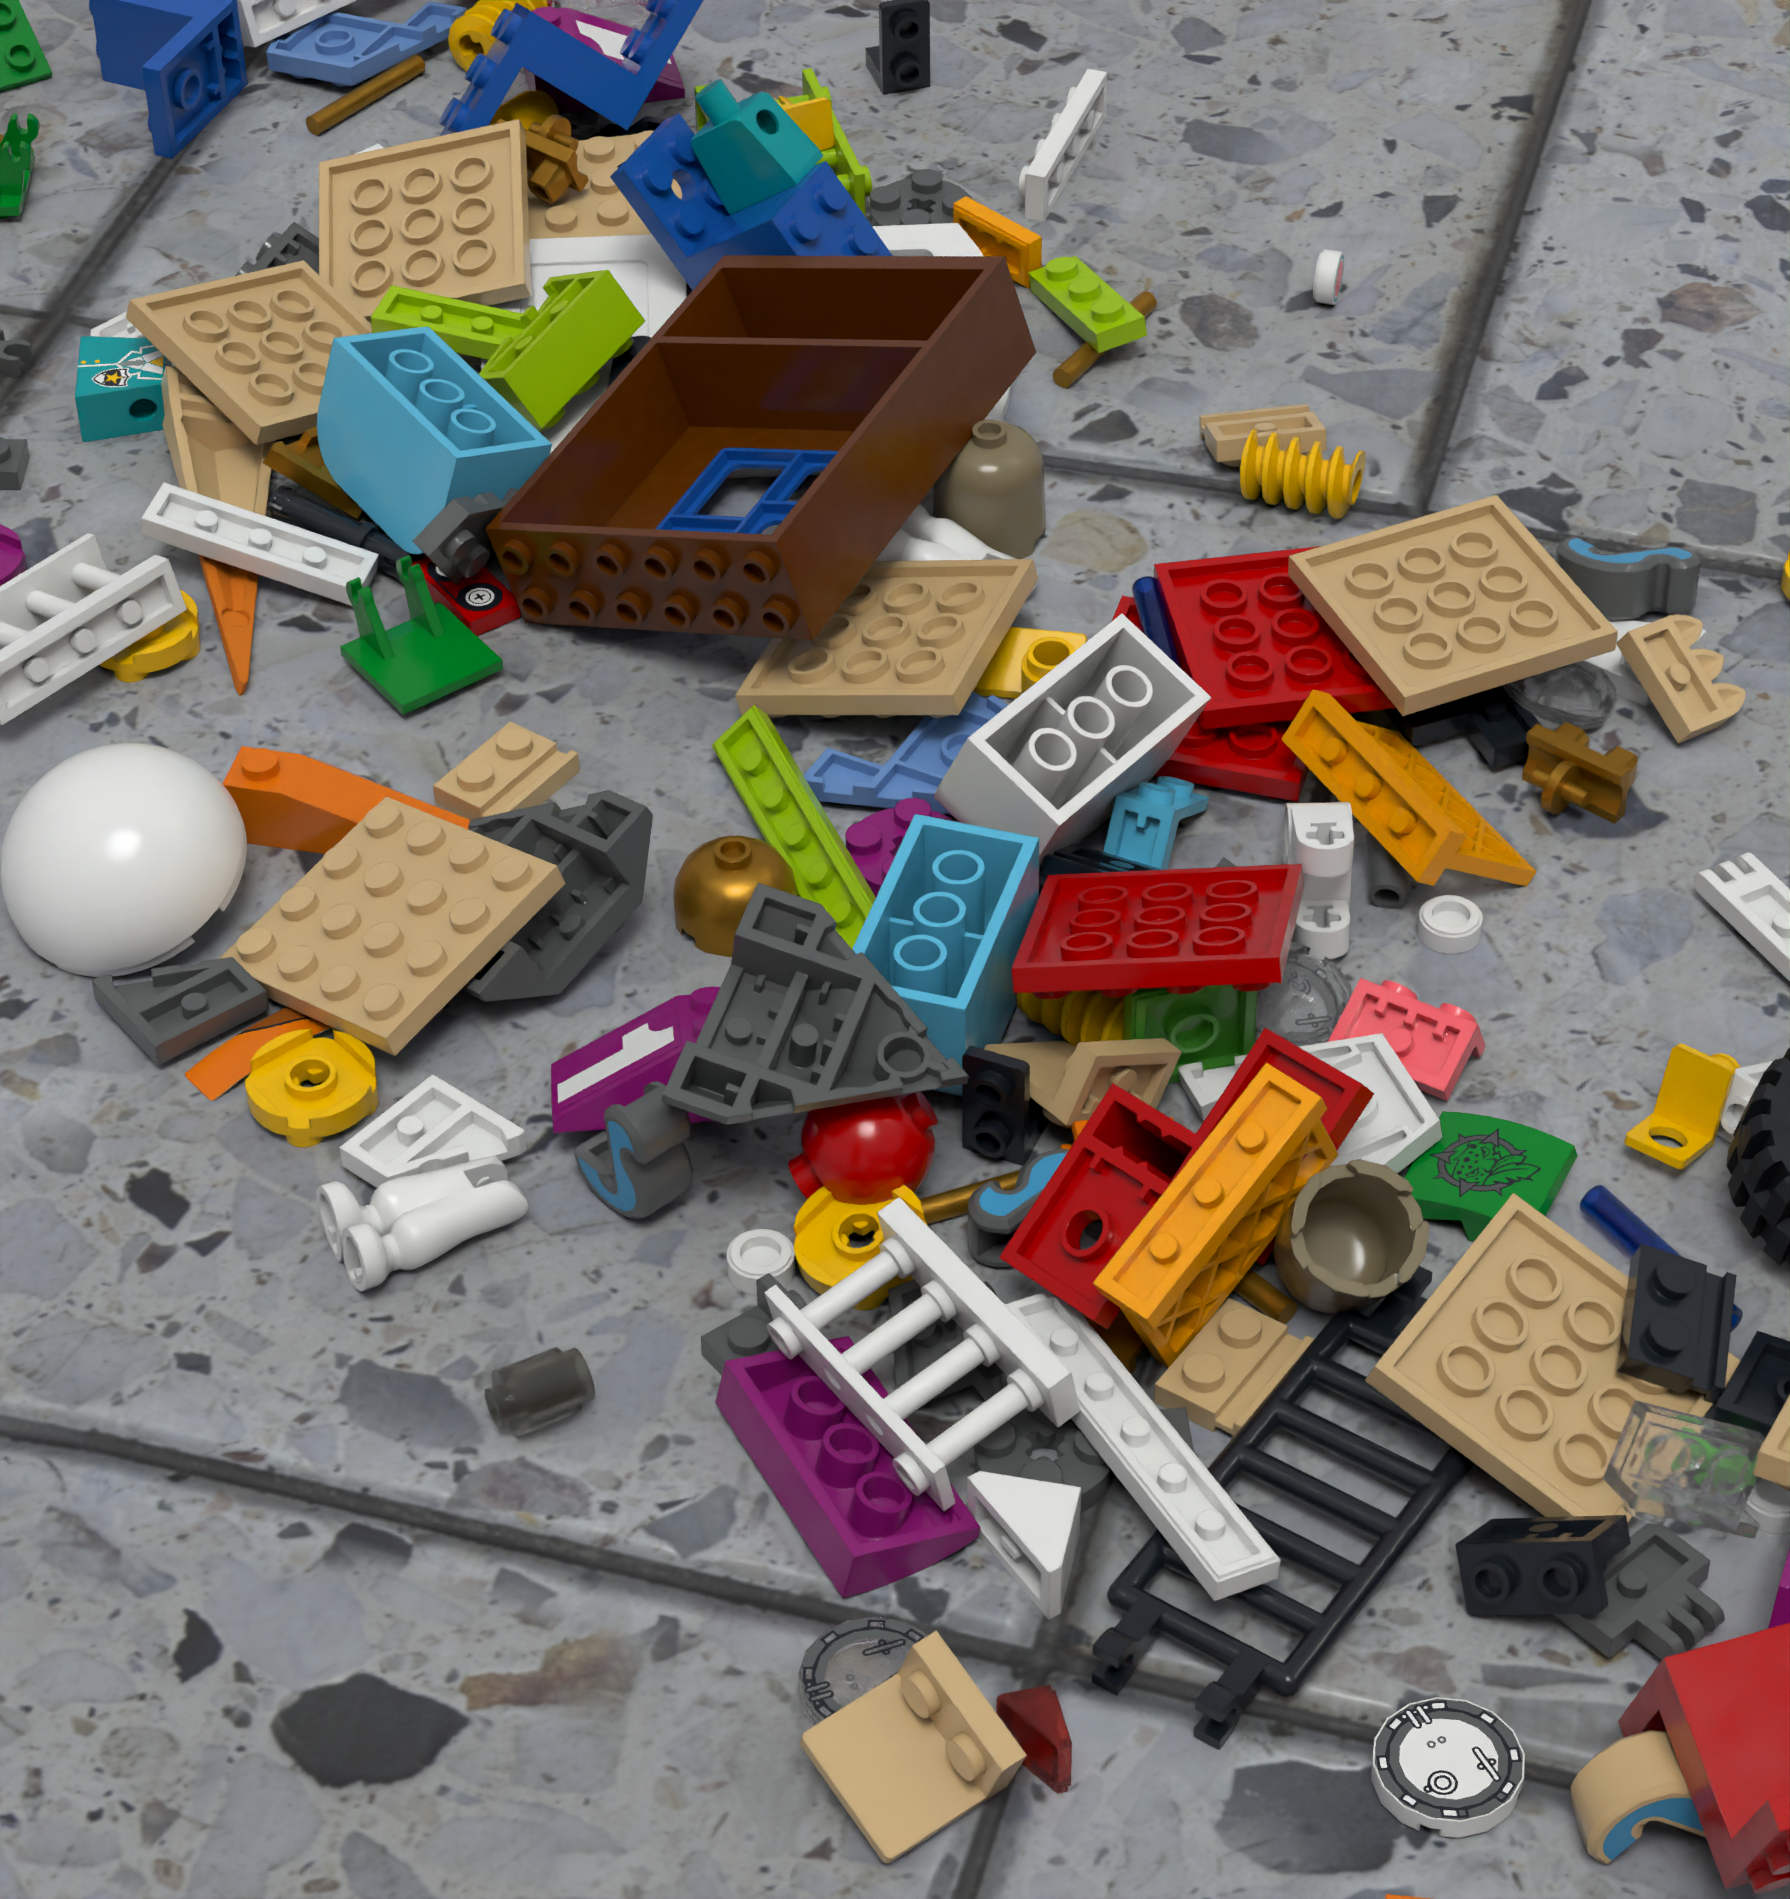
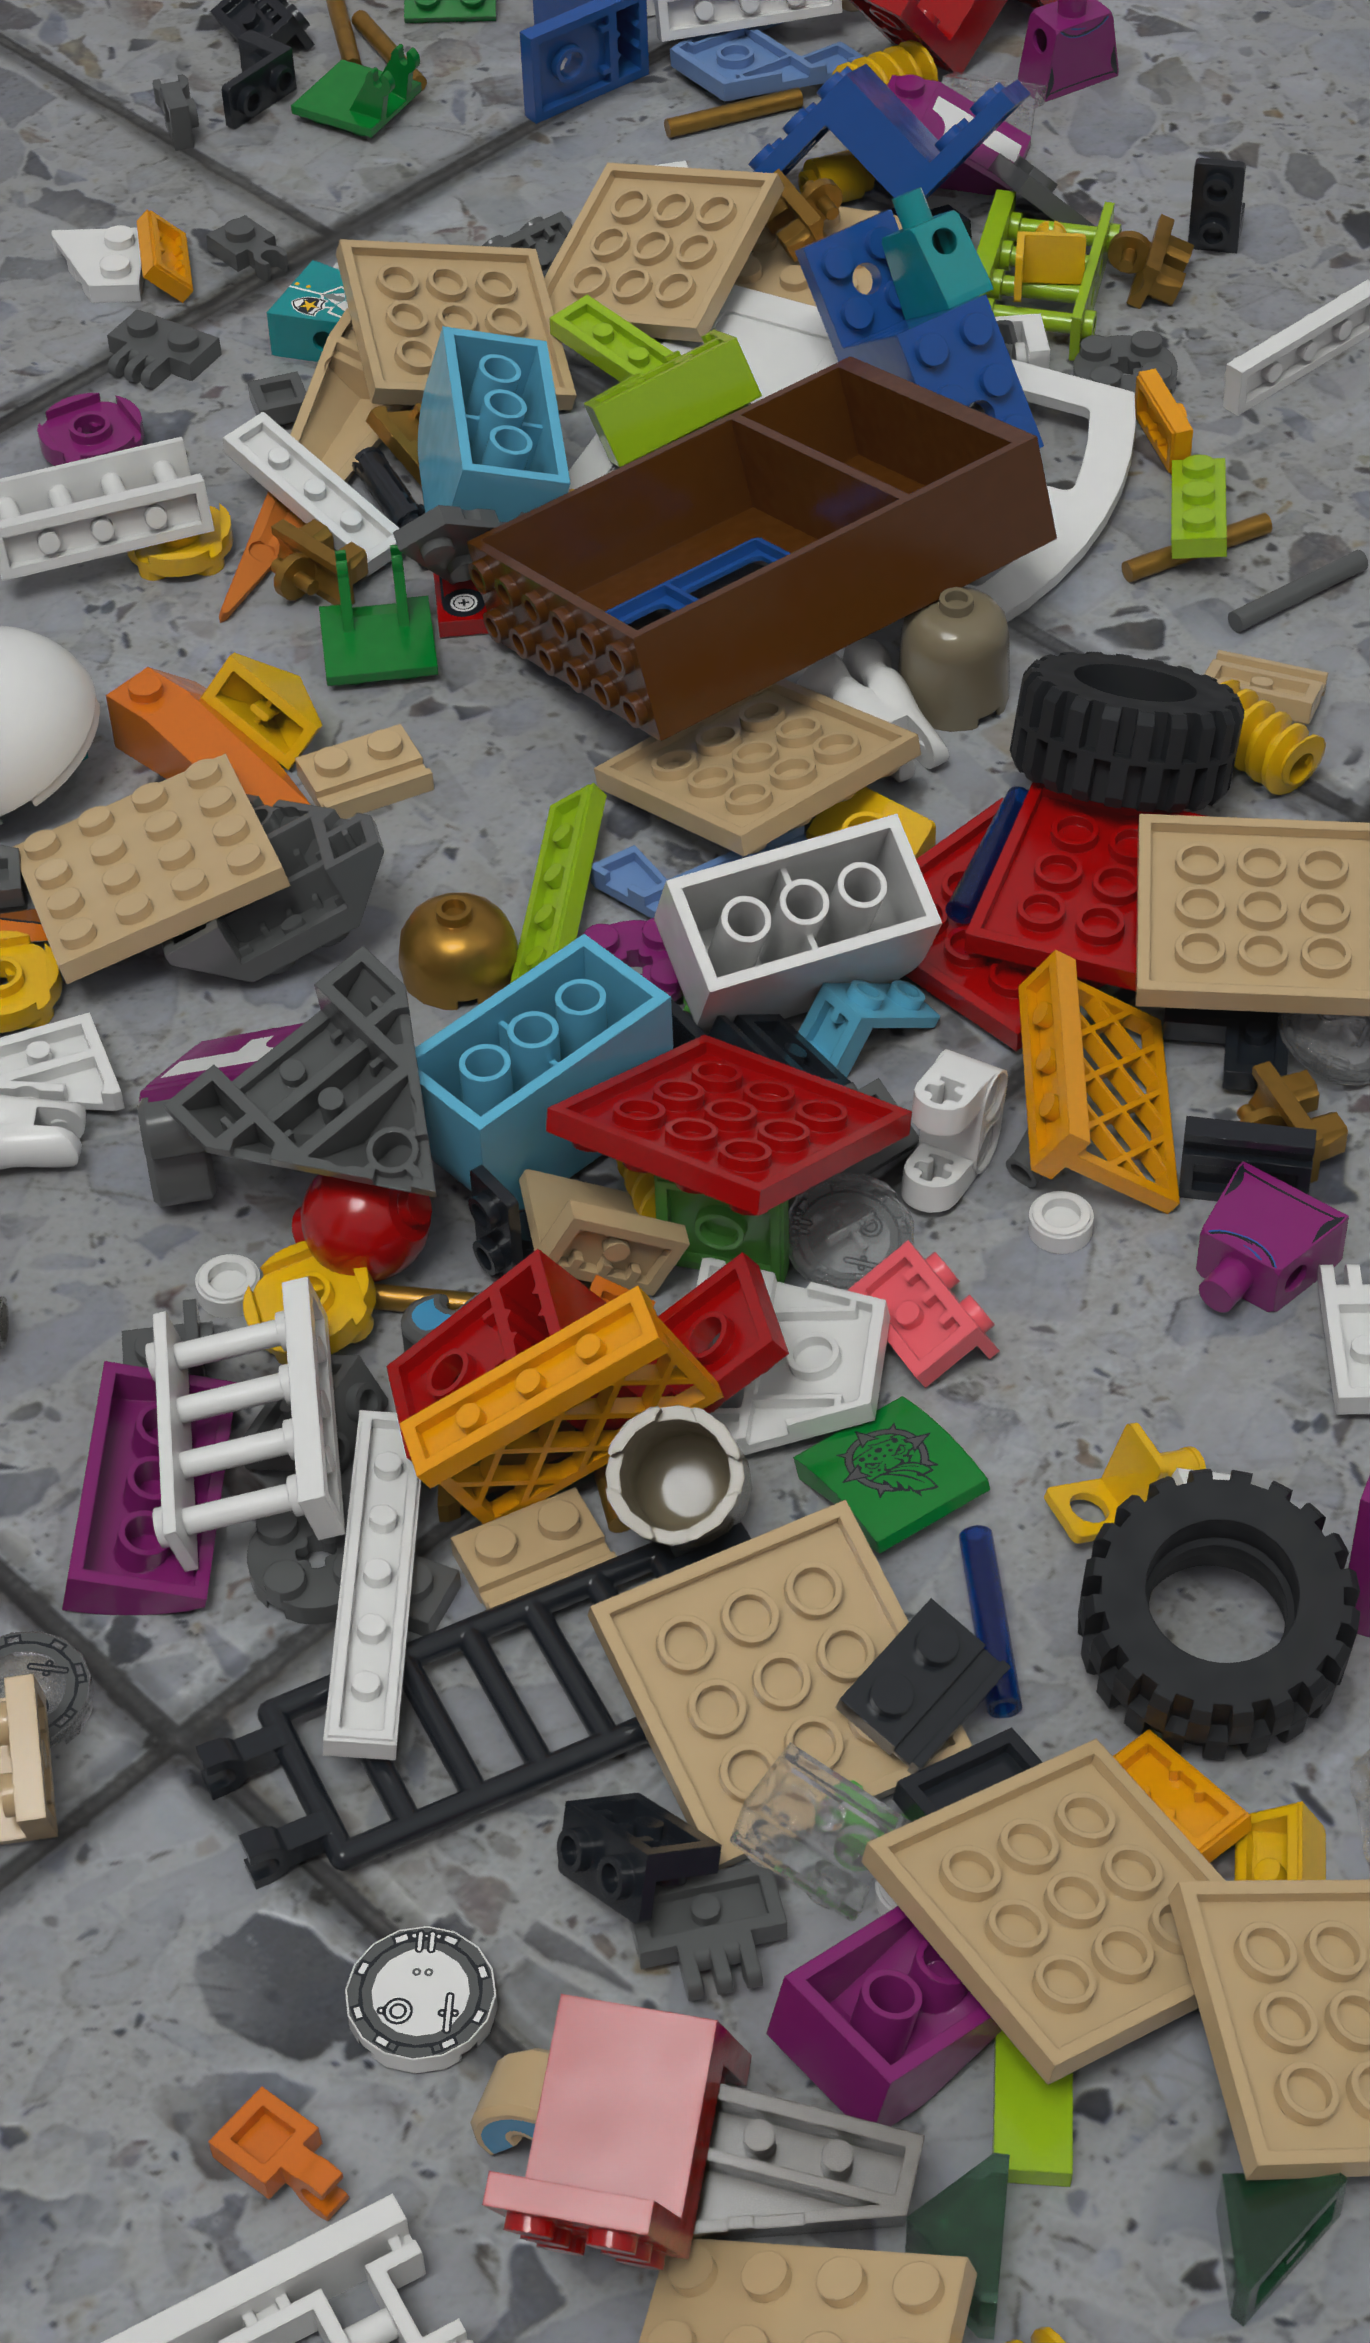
camera: 30 degrees right, 5 degrees up
(137, 475) = (278, 397): none -> dark grey plate
(303, 609) = (309, 563): none -> pearl gold hips
(380, 748) = (265, 706): none -> yellow slope
(704, 69) = (1035, 188): none -> dark grey wing
(875, 113) = (1156, 263): none -> pearl gold hips
(1030, 1531) = (244, 1627): white slope -> none
(1041, 1731) = (106, 1802): clear red slope -> none
(1211, 496) = (1126, 731): none -> black tyre
(1220, 347) = (1298, 590): none -> dark grey bar
(1579, 813) = (1219, 1146): none -> black plate
(1636, 871) = (1265, 1242): none -> magenta torso

